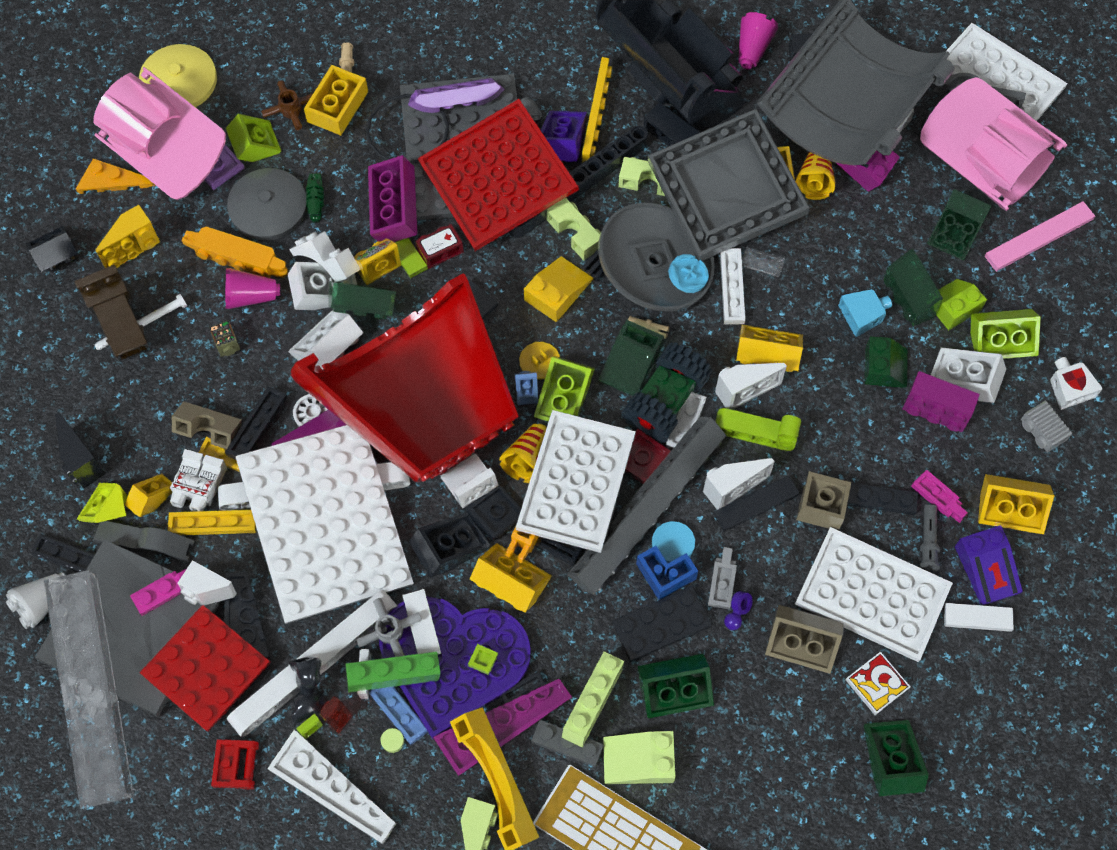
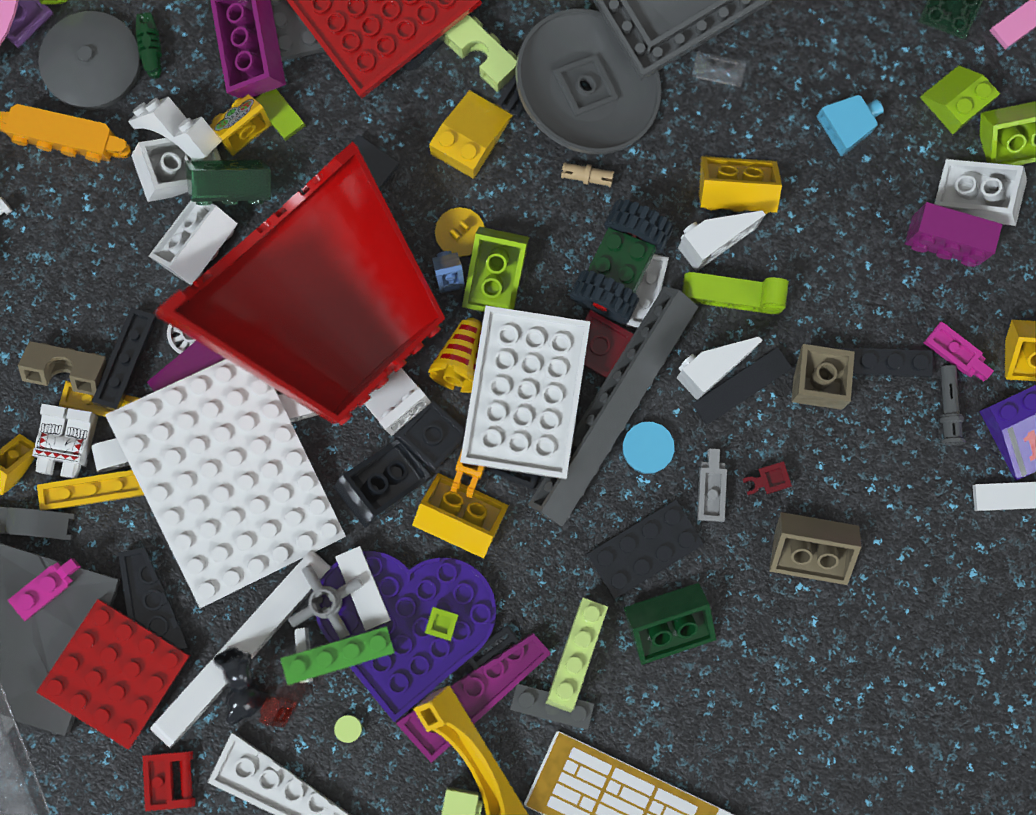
camera: 10 degrees left, 15 degrees up
(204, 585) = (92, 579): white slope -> none
(224, 338) = (67, 251): brick -> none
(248, 289) = (85, 182): dark pink cone -> none
(309, 726) = (248, 726): lime tile -> none
(399, 713) = (353, 696): medium blue tile -> none
(439, 246) = (315, 95): brick -> none
(631, 358) = (572, 219): clear green slope -> none
(639, 758) = (637, 715): yellowish green slope -> none
(663, 576) = (640, 495): blue brick -> none
(688, 273) = (630, 99): medium azure tile -> none
(732, 286) = (686, 108): white plate -> none
(741, 604) = (735, 516): dark purple plate -> none
(774, 578) = (772, 477): none -> dark red plate
(874, 594) = (890, 483): white plate -> none
(877, 683) = (903, 590): tile -> none
(885, 363) = (880, 188): dark green slope -> none
(895, 758) = (931, 678): dark green slope -> none
(913, 288) = (908, 87): clear green slope -> none

